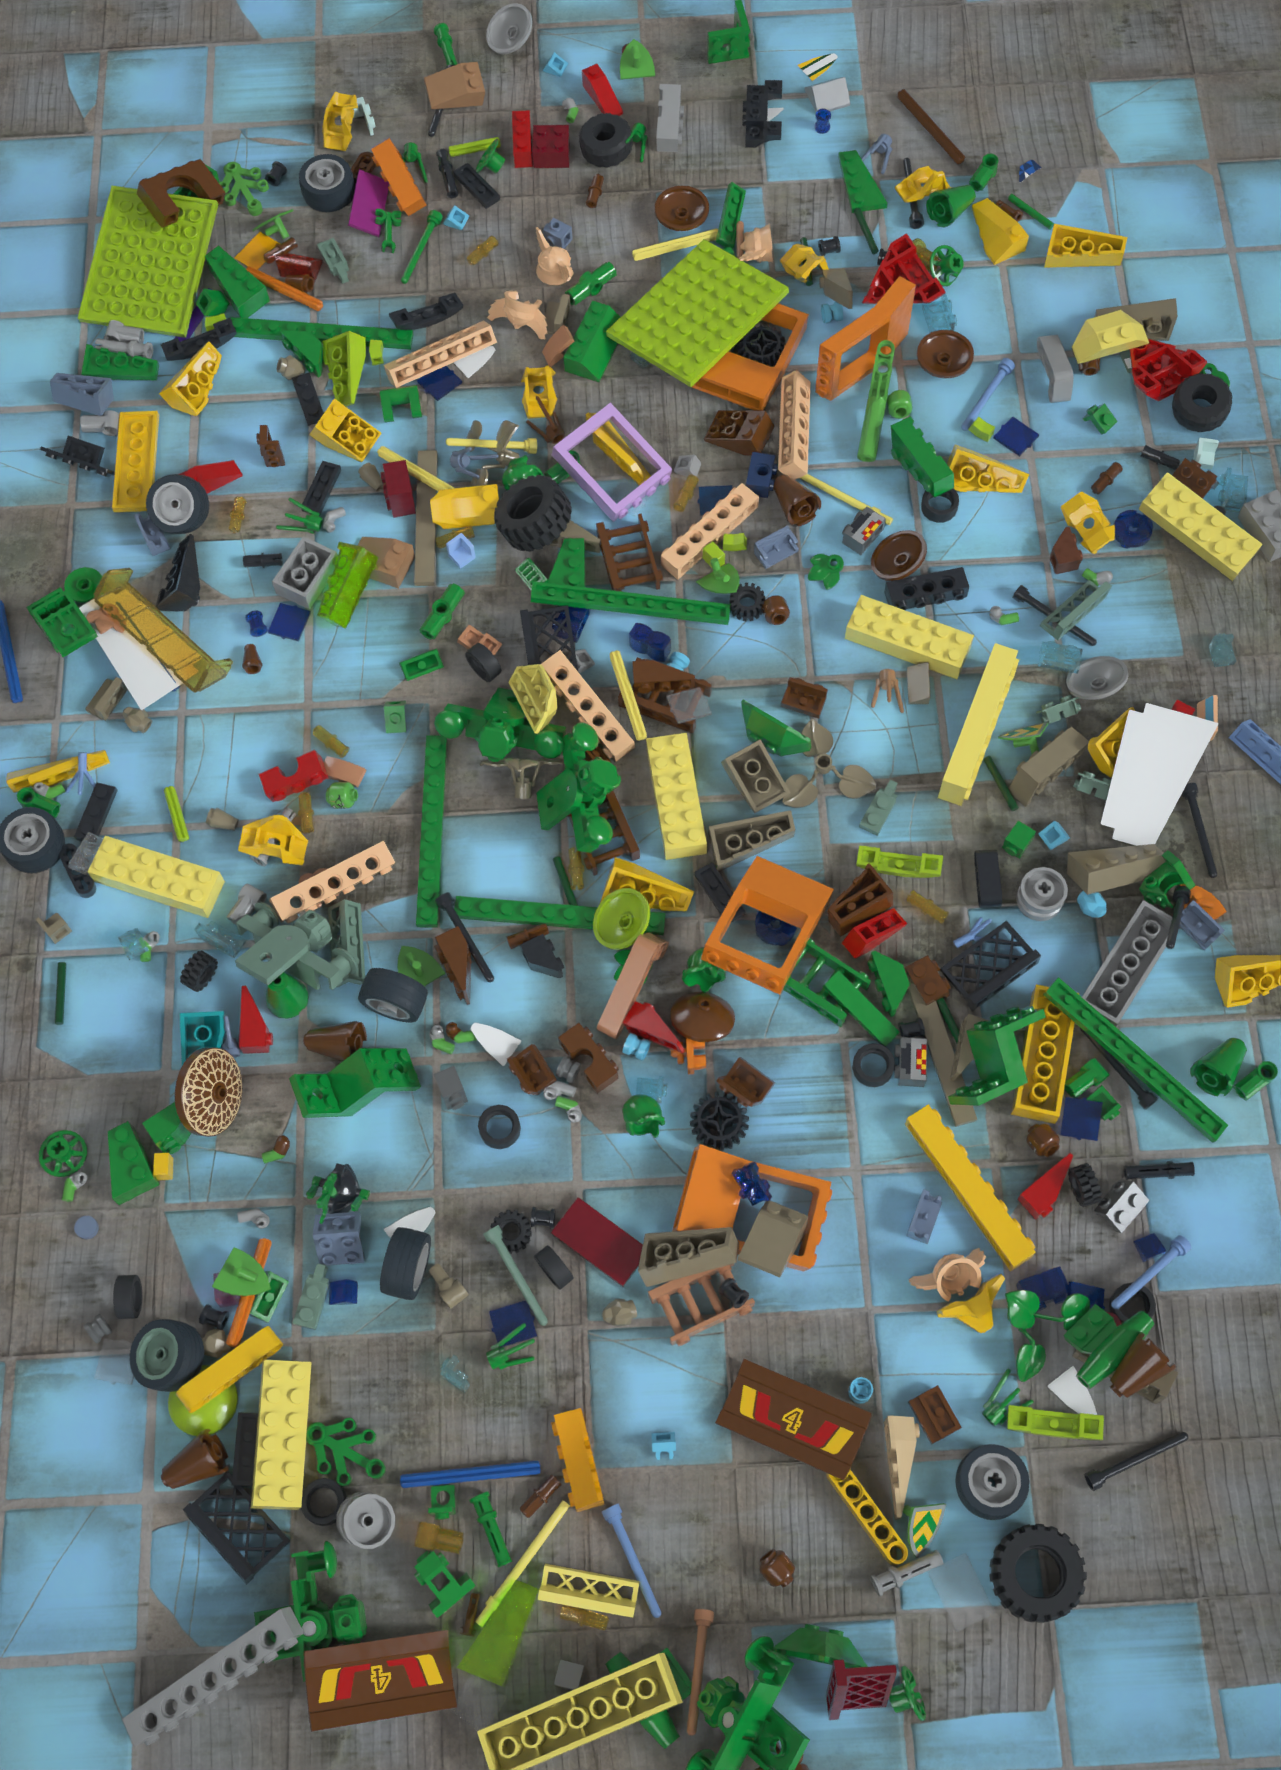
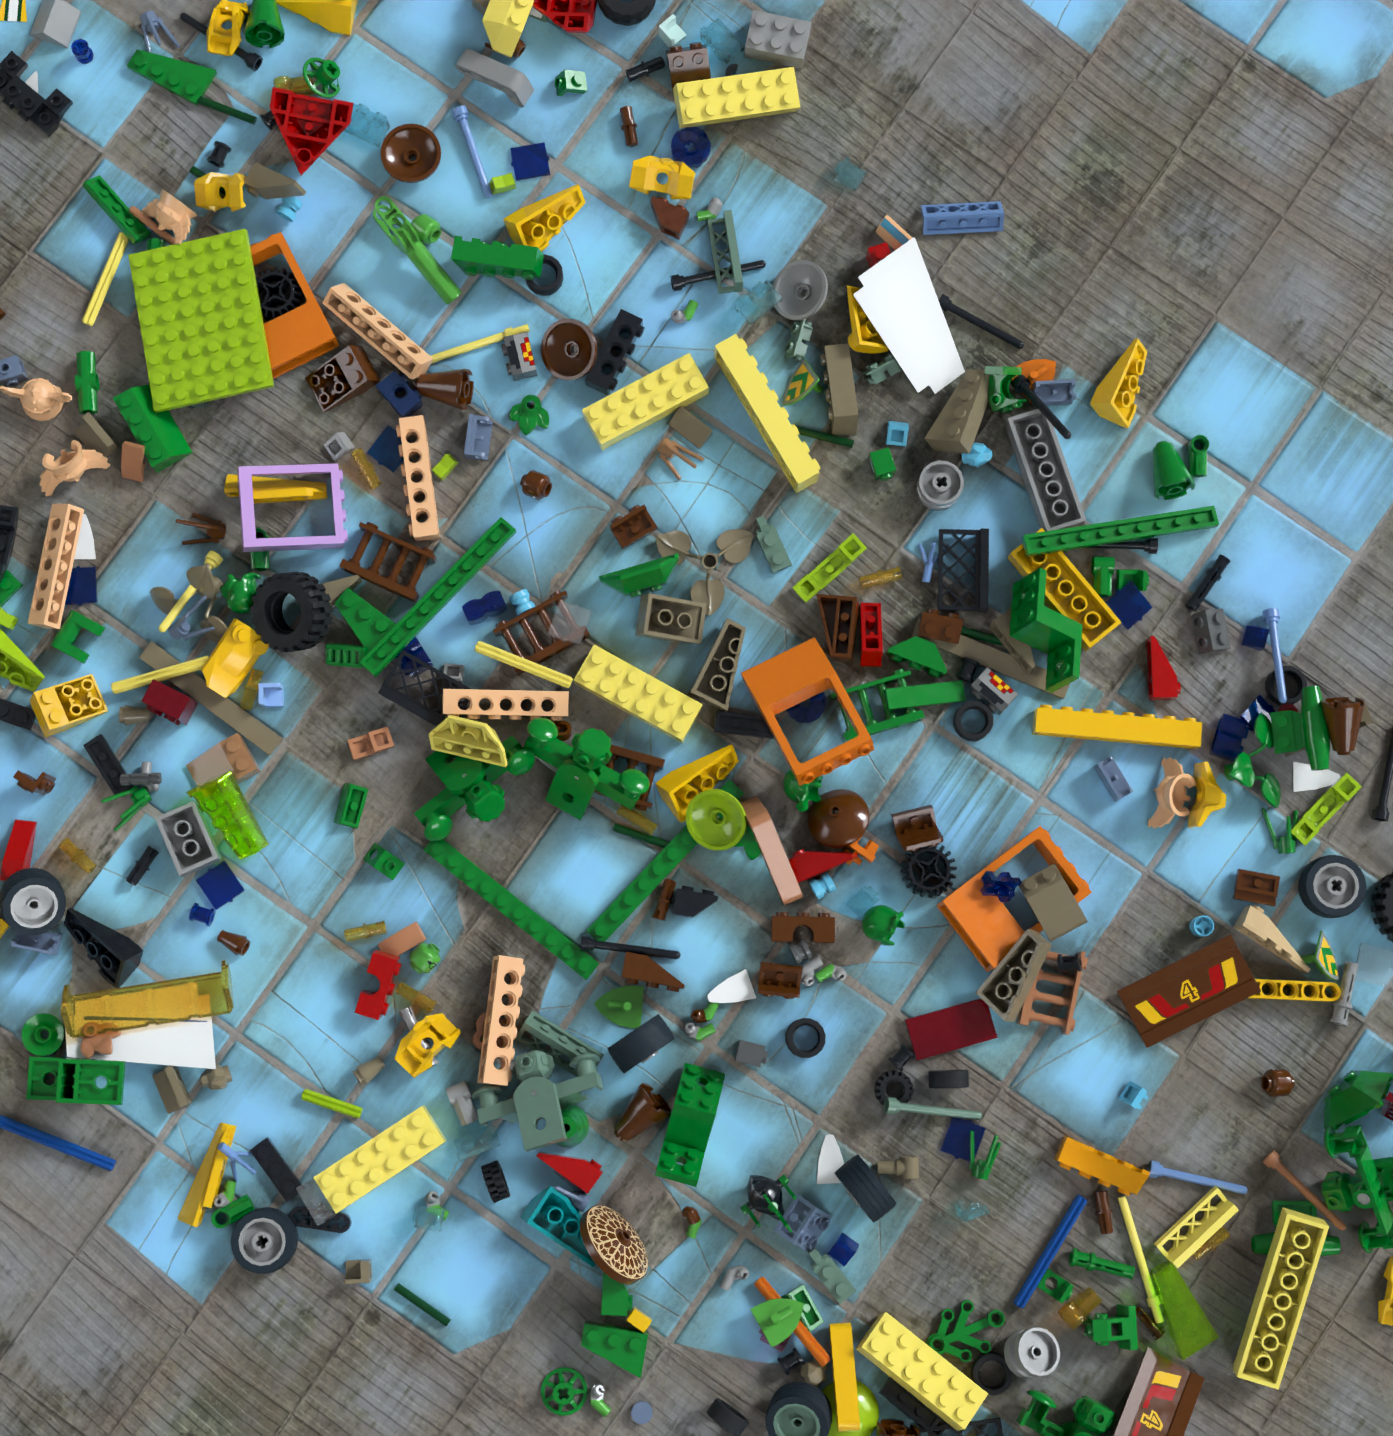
camera: 60 degrees left, 15 degrees up
(326, 510) = (140, 778): none -> dark grey axle
(446, 603) = (321, 765): green piece -> none
(483, 662) = (396, 756): black tyre -> none
(523, 783) = (529, 801): dark tan plant -> none
(538, 377) = (145, 502): yellow piece -> none
(569, 1675) = (1240, 1283): light grey slope -> none
(619, 1312) = (1016, 1054): dark tan rock -> none
(655, 676) = (523, 629): reddish brown slope -> none
(681, 208) = (71, 235): reddish brown dish -> none
(713, 551) = (445, 494): lime piece -> none
(721, 580) = (472, 505): bright green shield -> none
(747, 592) = (509, 513): black tyre -> none
(885, 321) = (355, 212): orange window -> none
(988, 878) = (894, 513): black beam -> none
(1043, 1140) = (1123, 646): reddish brown head -> none
(1084, 1185) = (1181, 646): black tyre -> none

